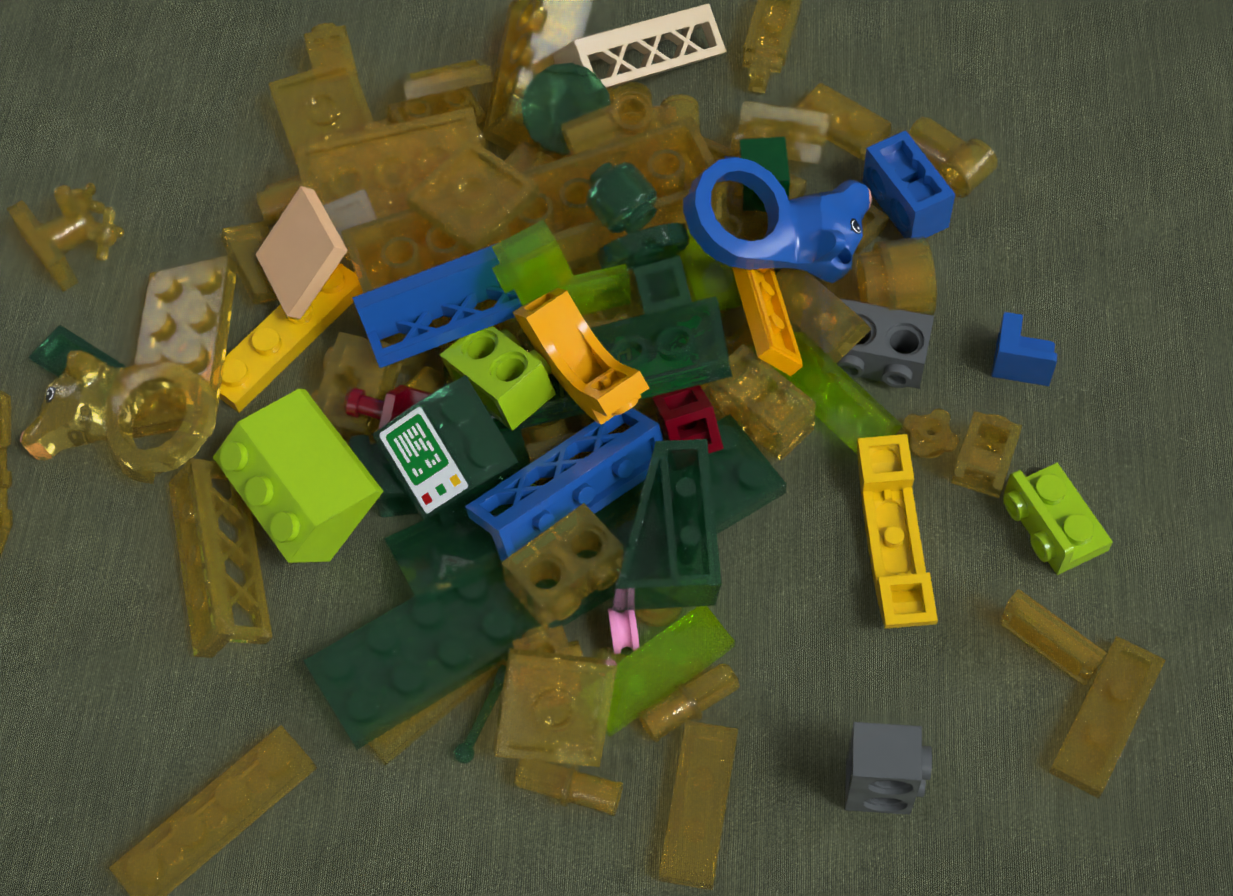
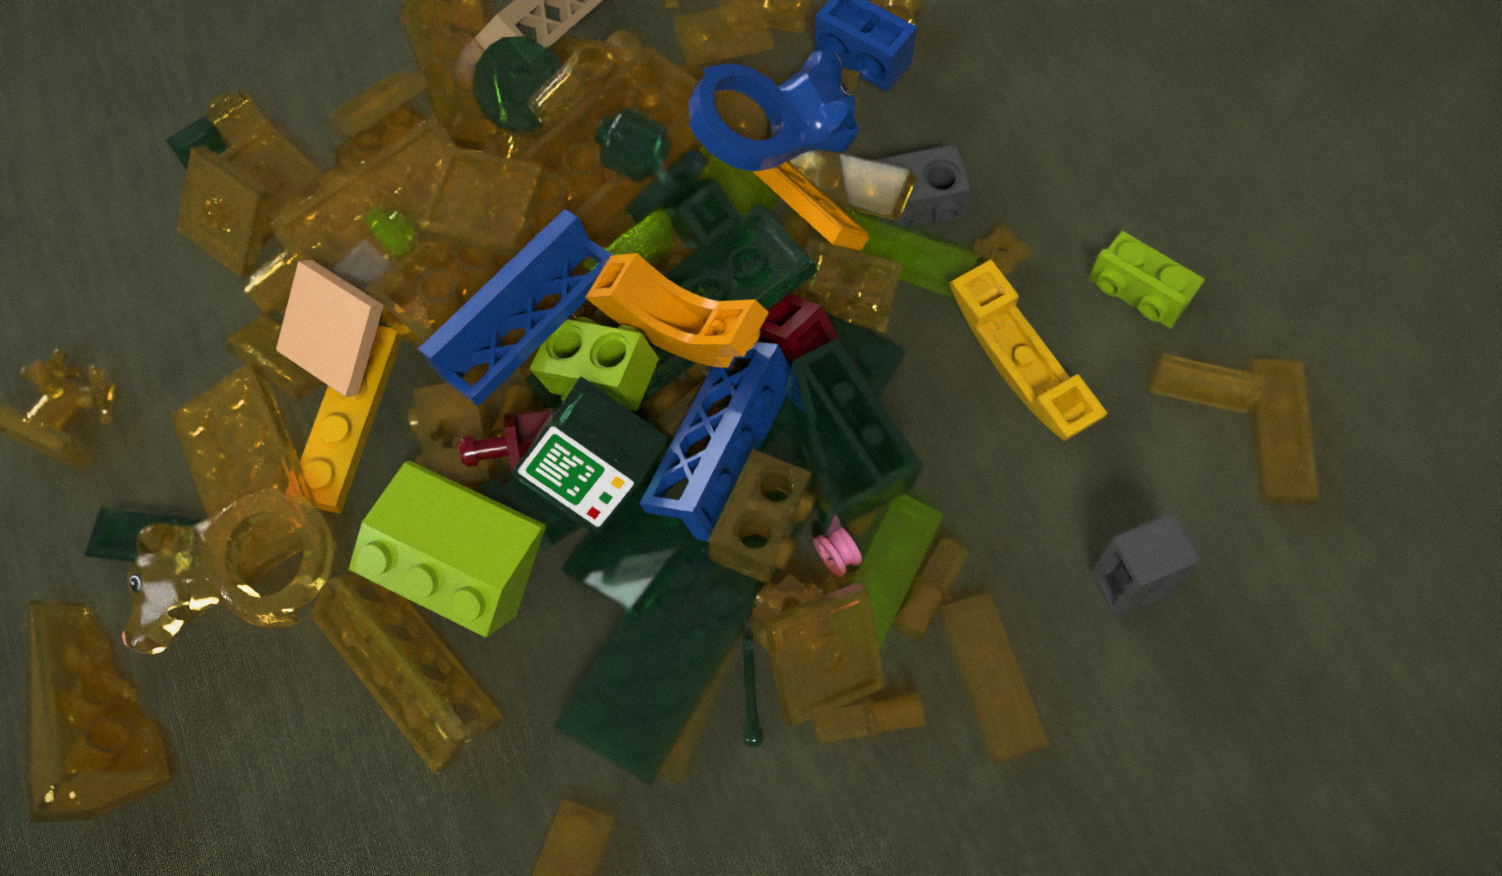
camera: 30 degrees left, 5 degrees up
(275, 121) = (223, 211): none -> clear yellow plate
(286, 58) = (195, 135): none -> clear green tile
(386, 190) = (390, 231): none -> clear neon green plate
(531, 263) = (583, 241): clear neon green brick -> none
(771, 155) = (730, 51): dark green brick -> none
(898, 276) = (904, 120): clear yellow piece -> none
(986, 453) = (1063, 247): clear yellow brick -> none
(1022, 357) = (1038, 151): blue panel -> none

